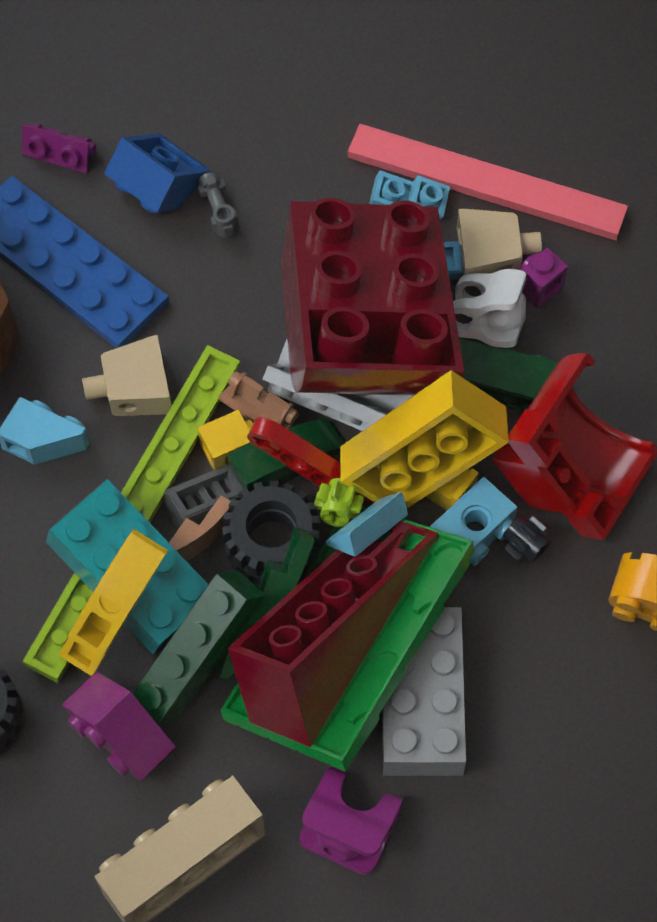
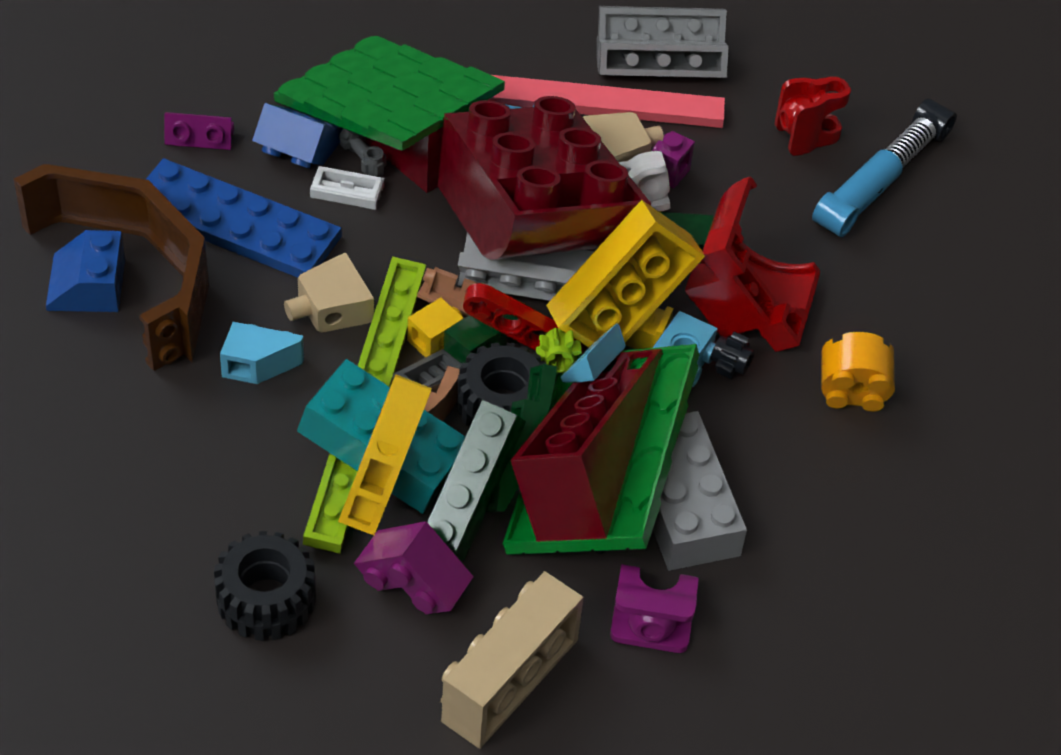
camera: 20 degrees left, 15 degrees down
(185, 255) = (346, 188): none -> white tile
(256, 148) = (392, 100): none -> green piece
(577, 125) = (662, 41): none -> light grey brick

